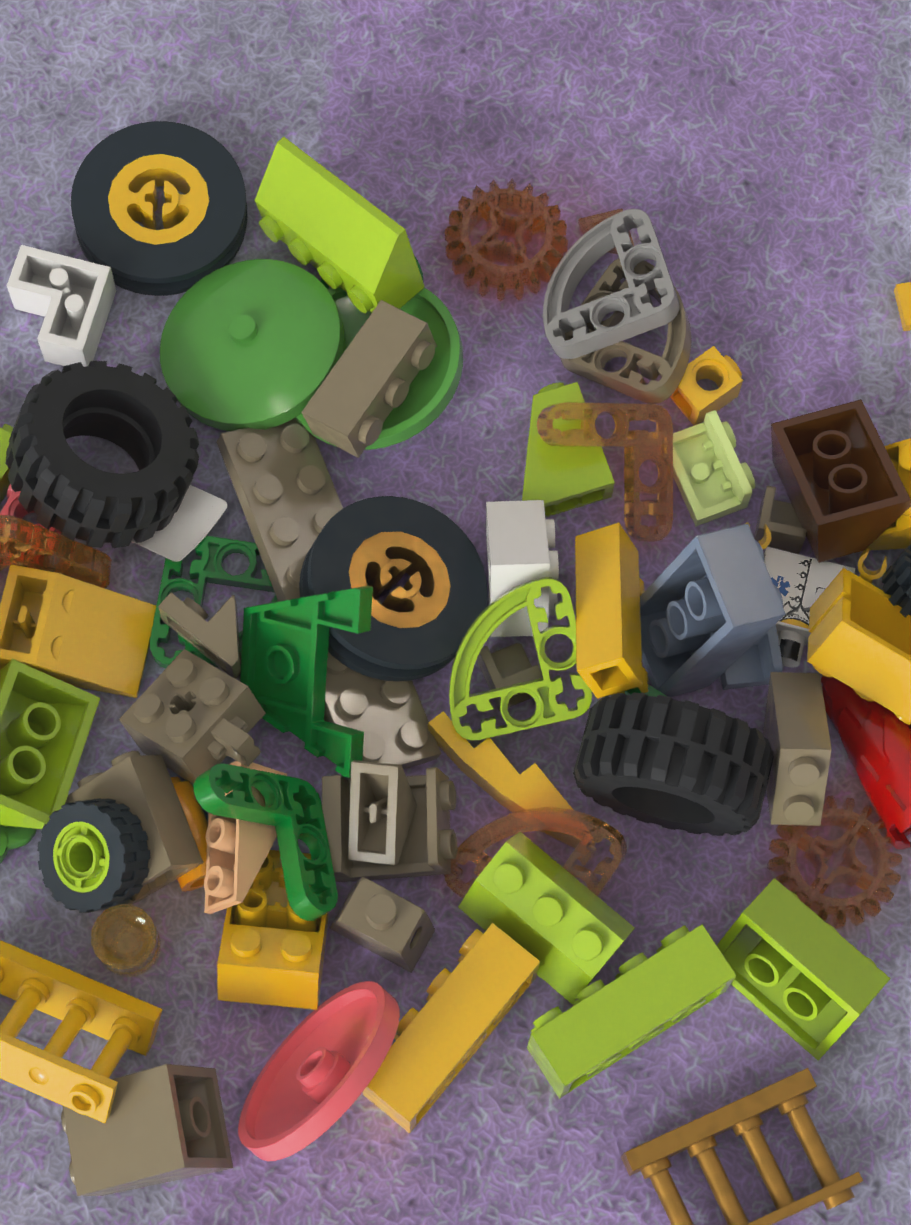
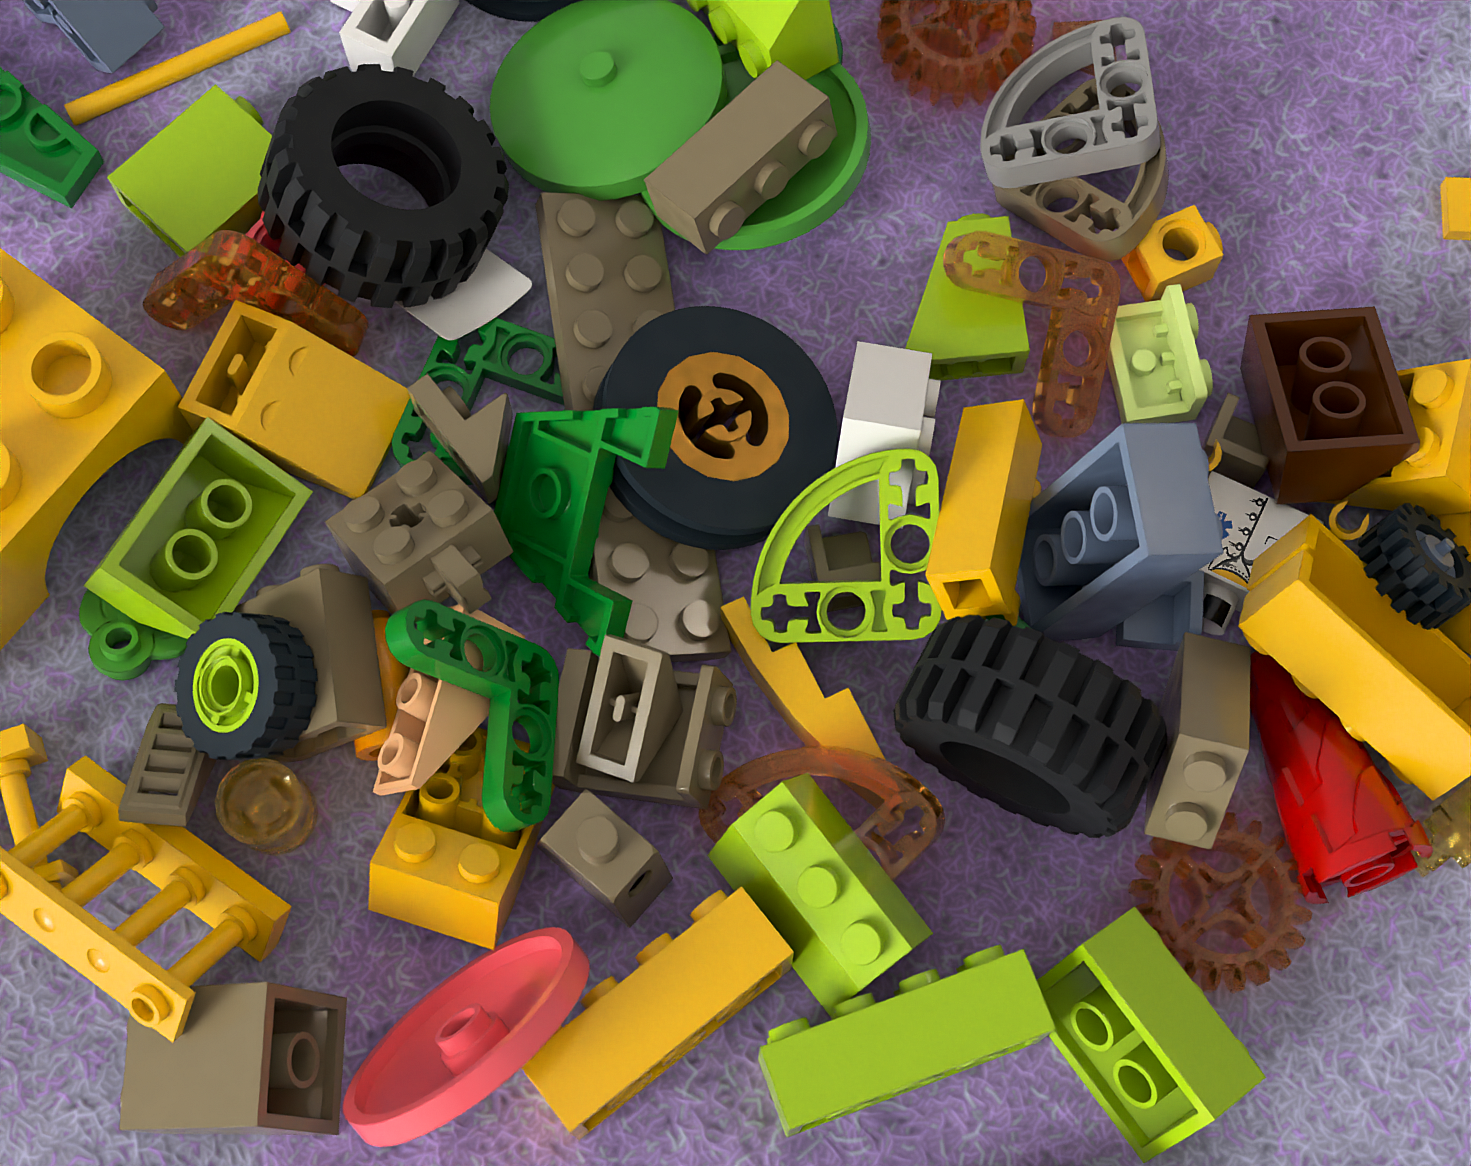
camera: 15 degrees right, 0 degrees up
(45, 924) = (168, 765): none -> dark tan slope

